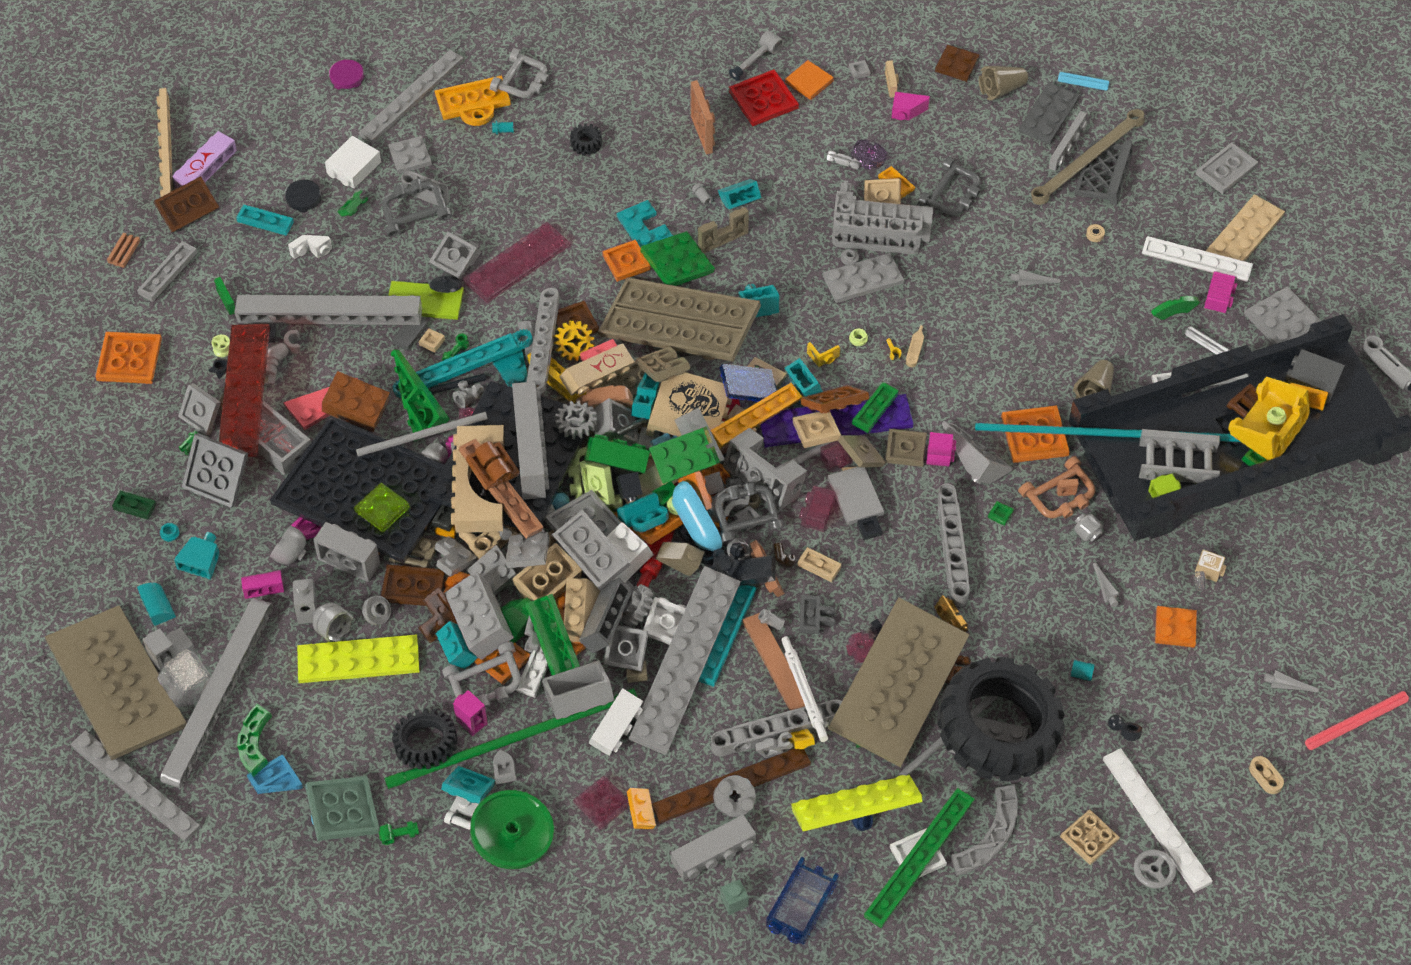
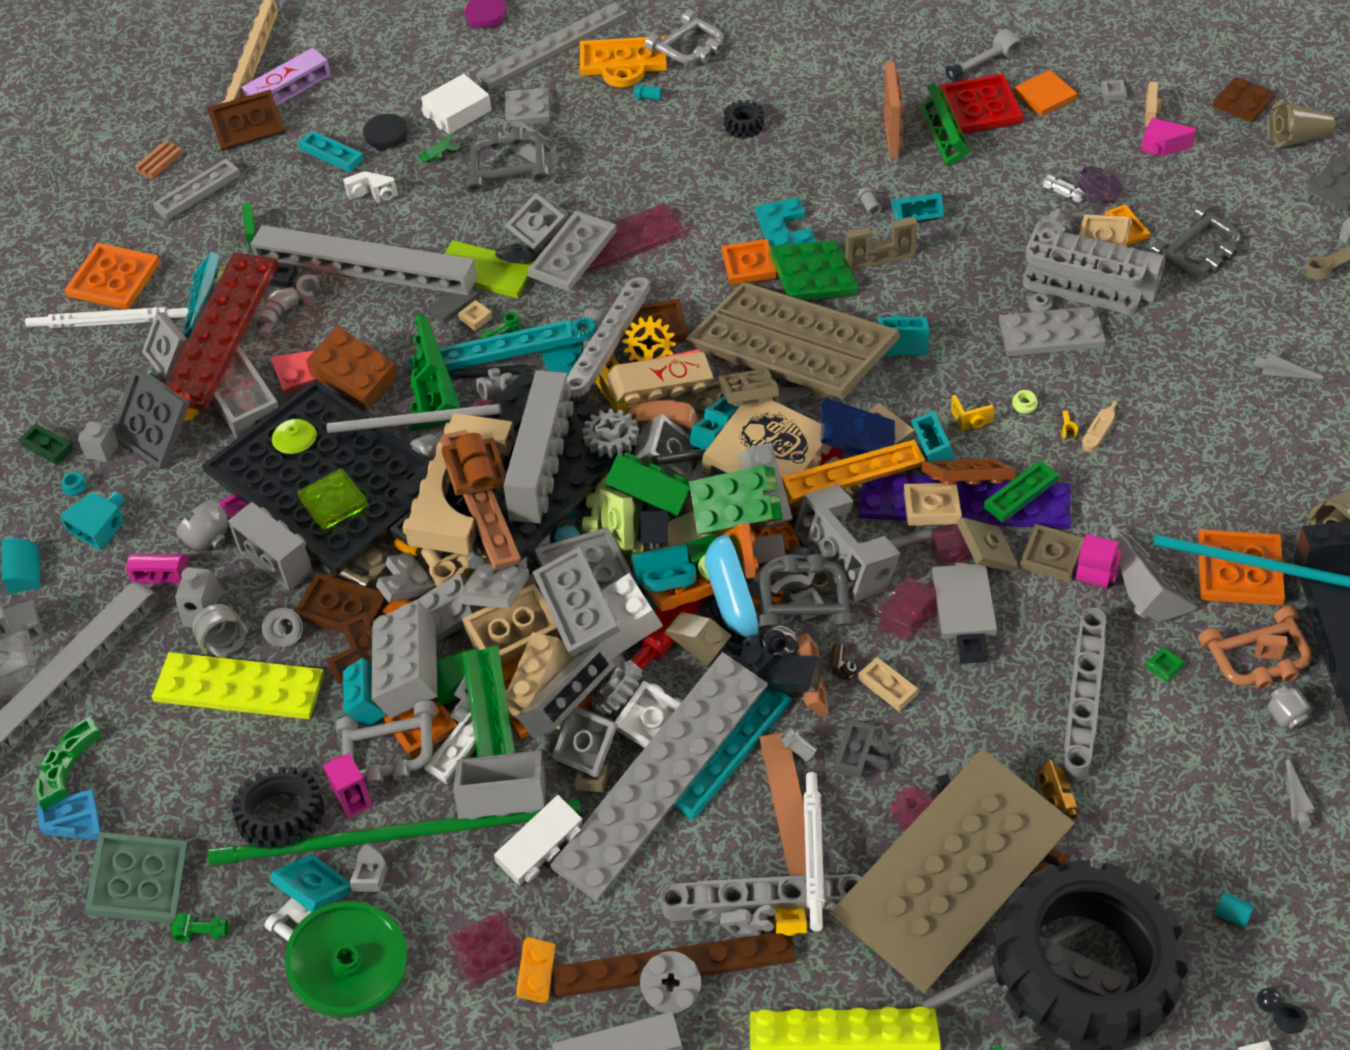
camera: 20 degrees right, 5 degrees down
(139, 392) = (103, 317): none -> white axle
(176, 495) = (98, 441): none -> light grey brick
(211, 359) = (200, 291): none -> teal wing
(332, 464) = (294, 436): none -> lime piece
(491, 275) = (572, 250): none -> light grey plate
(745, 120) = (949, 126): none -> green fence

